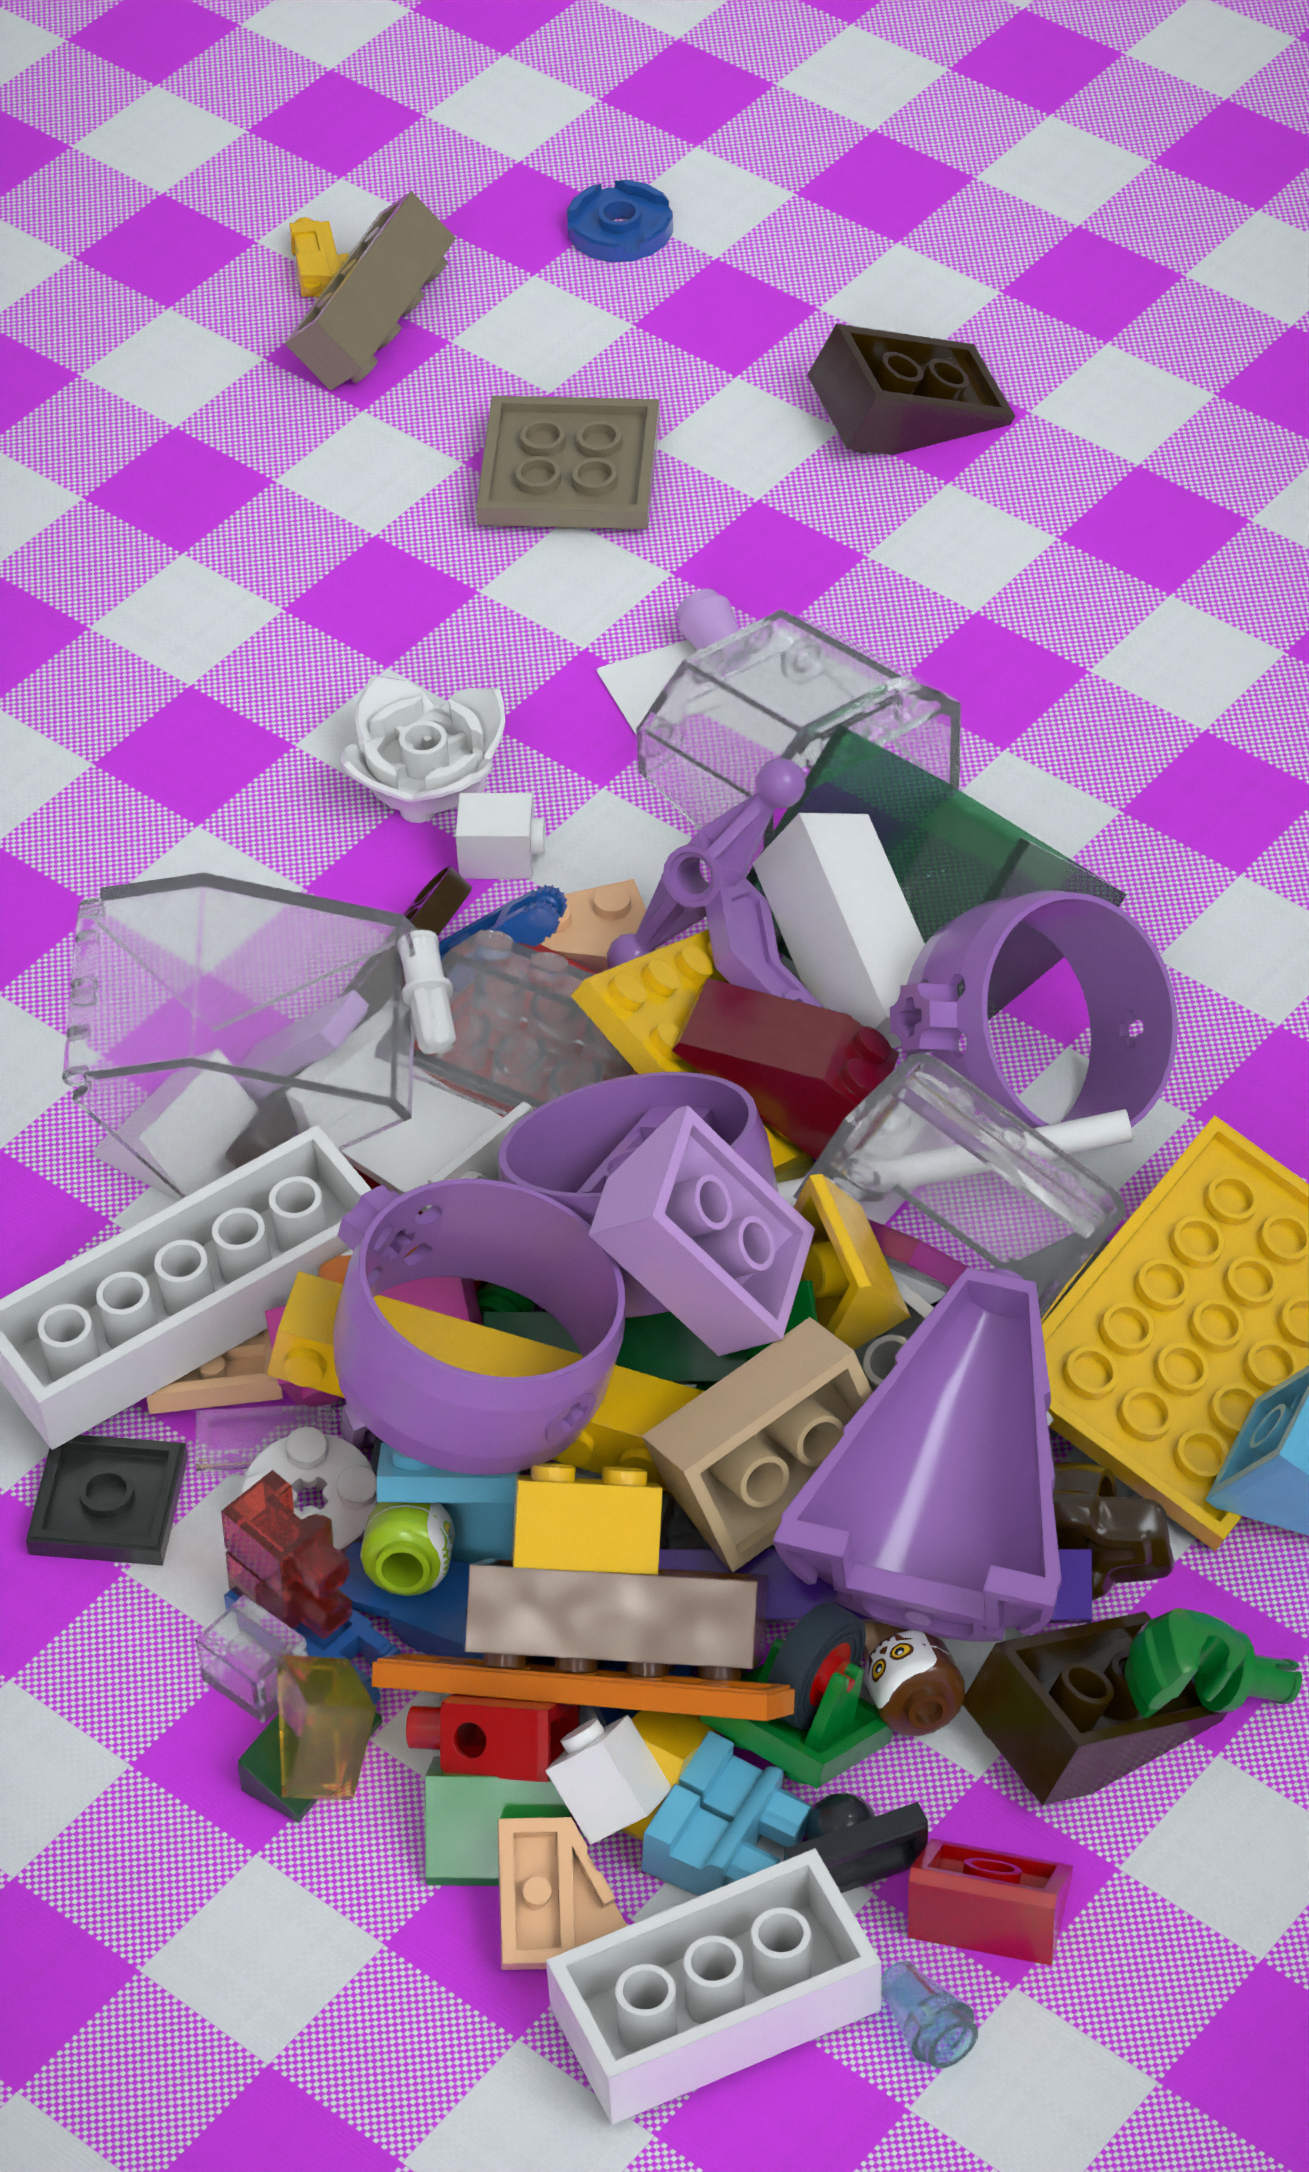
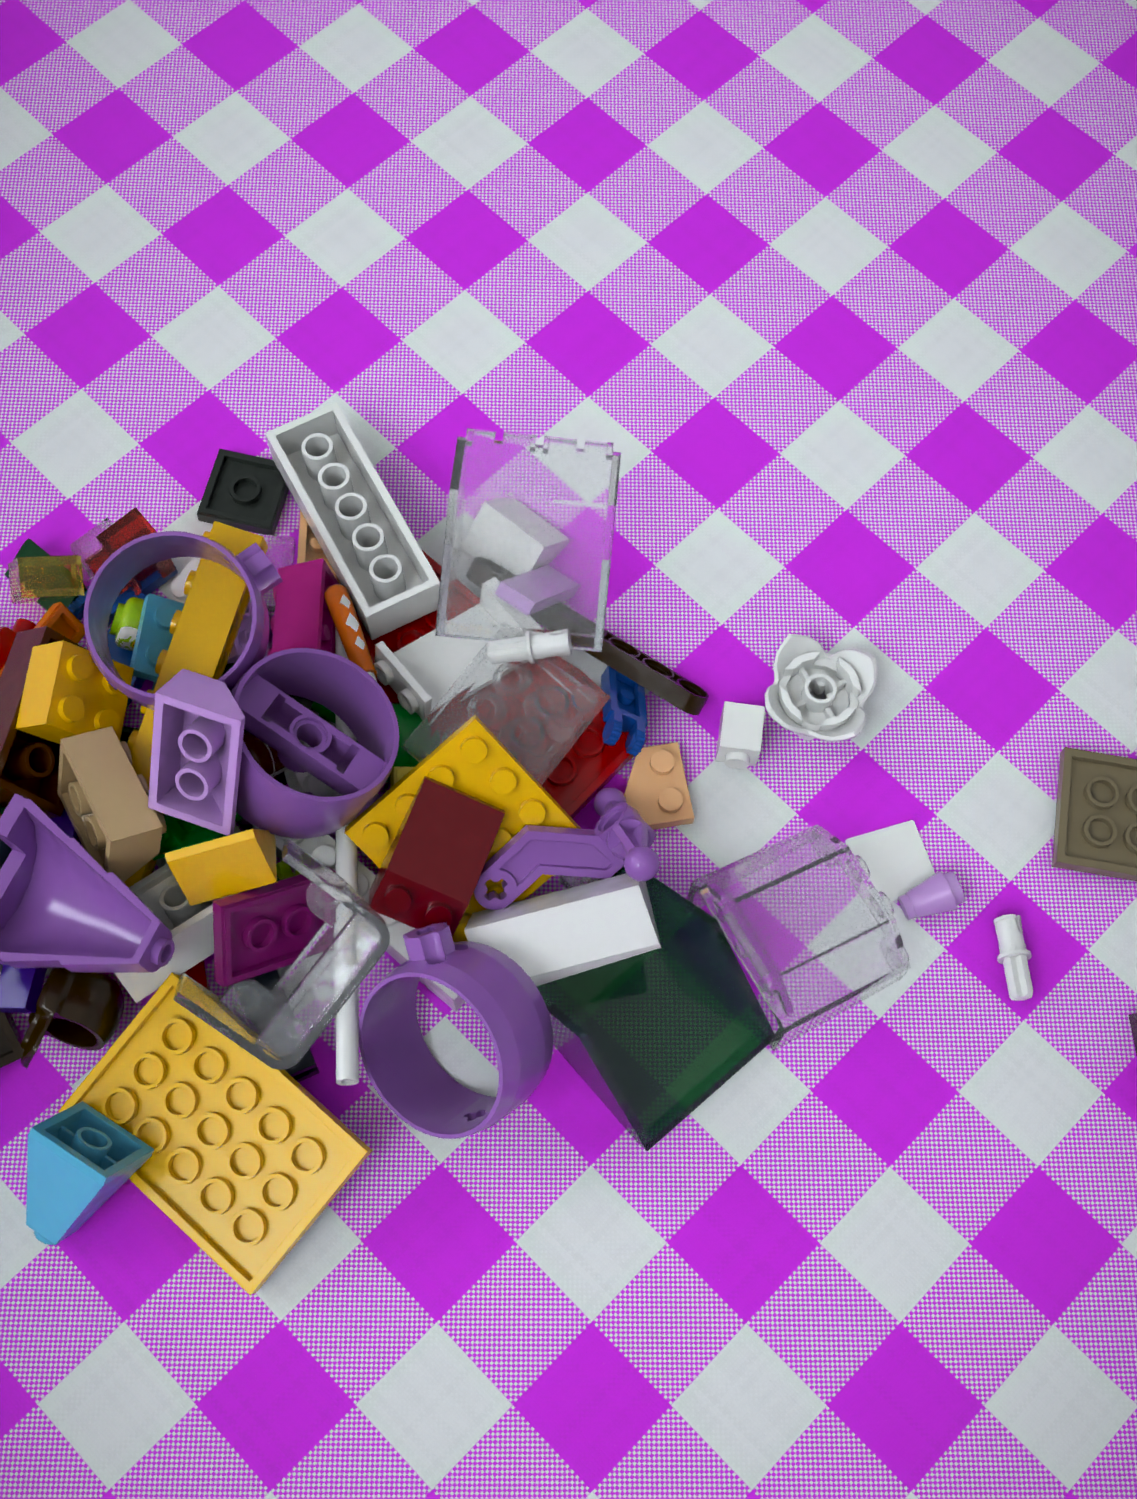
camera: 90 degrees right, 20 degrees up
(787, 553) = (1014, 956): none -> white axle

